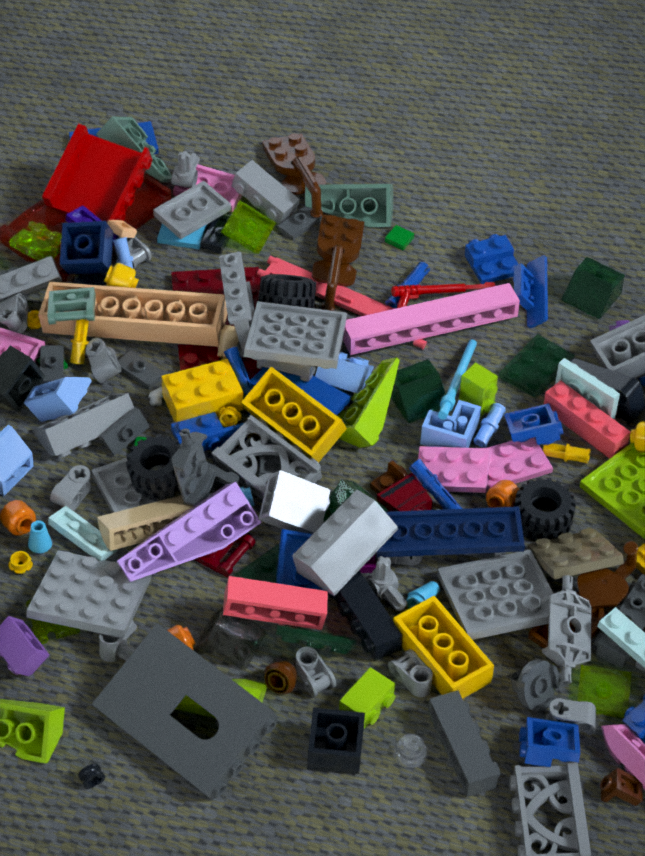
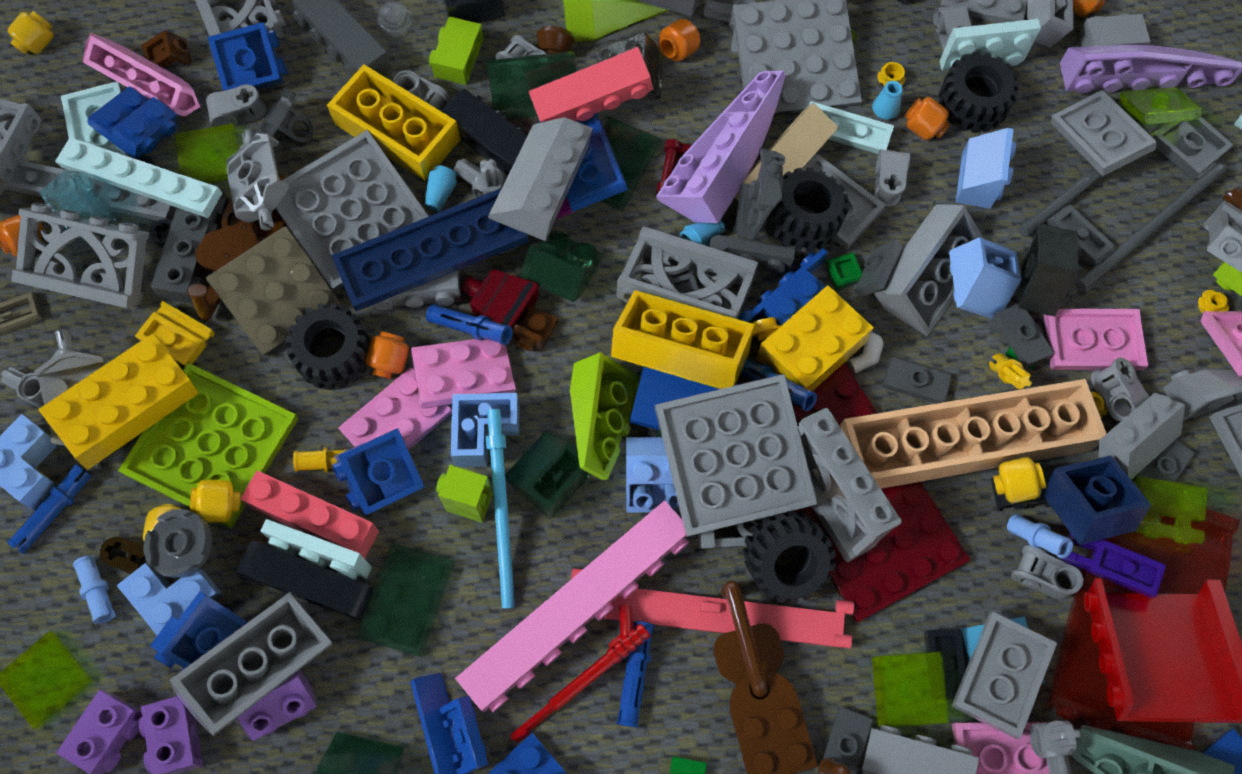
camera: 160 degrees right, 20 degrees up
(71, 299) = (1052, 398): sand green plate -> none
(102, 360) = (967, 363): light grey piece -> none
(122, 229) = (1075, 573): light nougat tile -> none
(294, 503) = (626, 222): brick -> none
(489, 425) = (438, 459): light blue pin -> none

